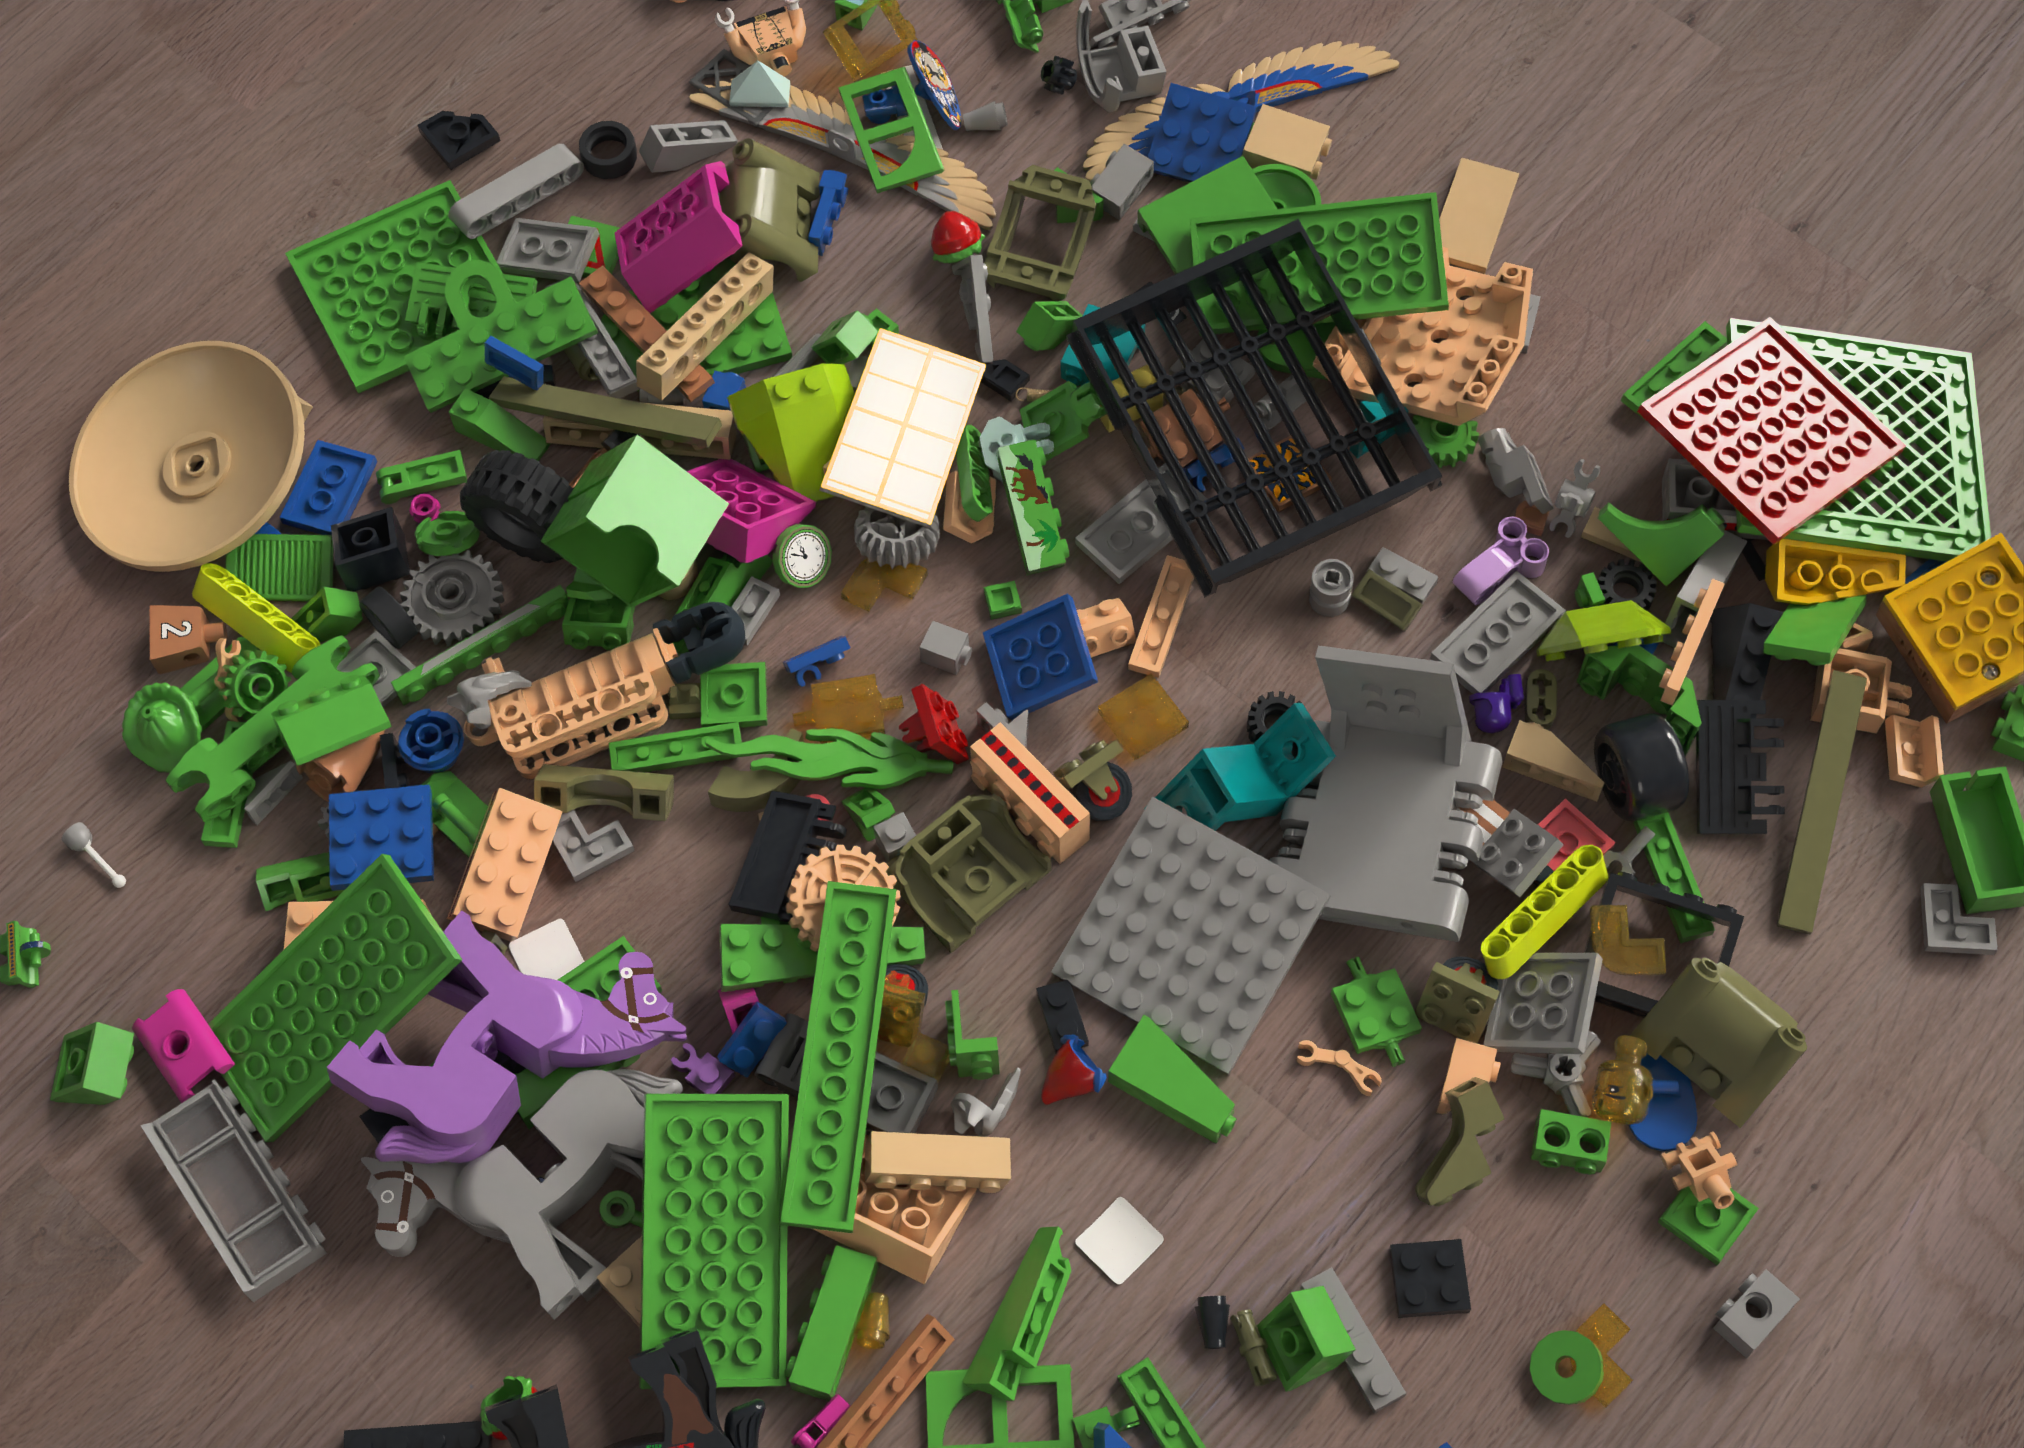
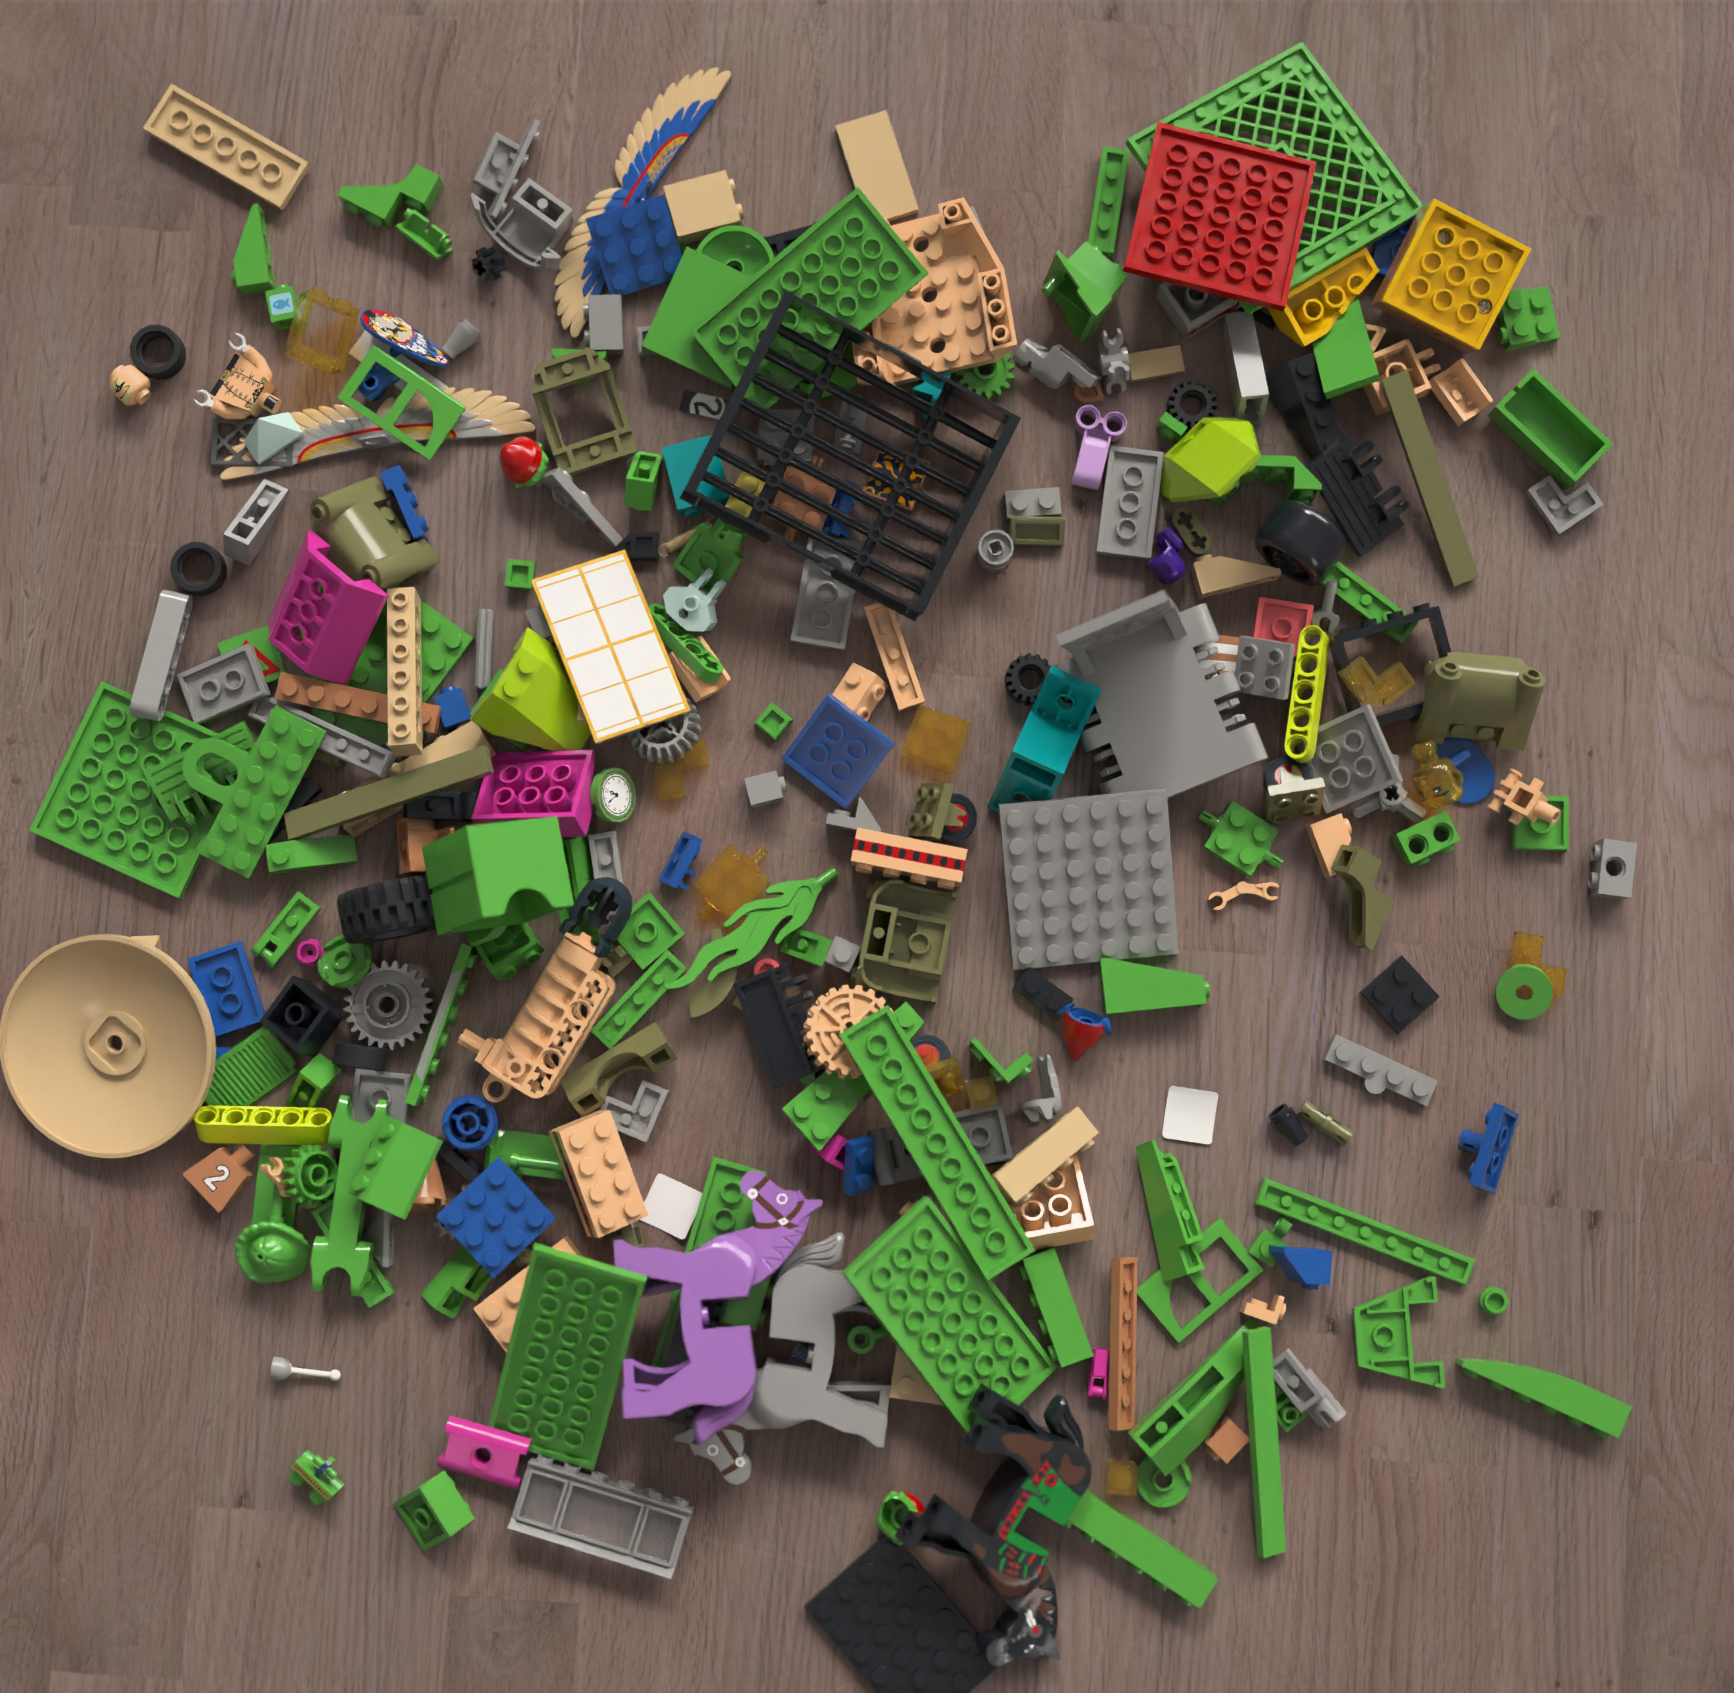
camera: 40 degrees left, 20 degrees up
(458, 137) = (73, 638): black plate -> none
(481, 689) = (483, 1068): light grey hair -> none
(513, 363) = (290, 805): blue tile -> none
(705, 1074) = (842, 1206): medium lavender plate -> none
(845, 338) = (510, 604): bright green brick -> none
(873, 1324) = (1080, 1285): clear yellow cone -> none
(935, 725) = (807, 854): red plate -> none
(1031, 506) = (746, 642): brick -> none
(1305, 1337) = (1355, 1095): bright green slope -> none
(1595, 419) = (1084, 287): none -> bright green piece
(1666, 545) = (1202, 354): bright green arch -> none
(1684, 652) = (1275, 418): light nougat plate -> none

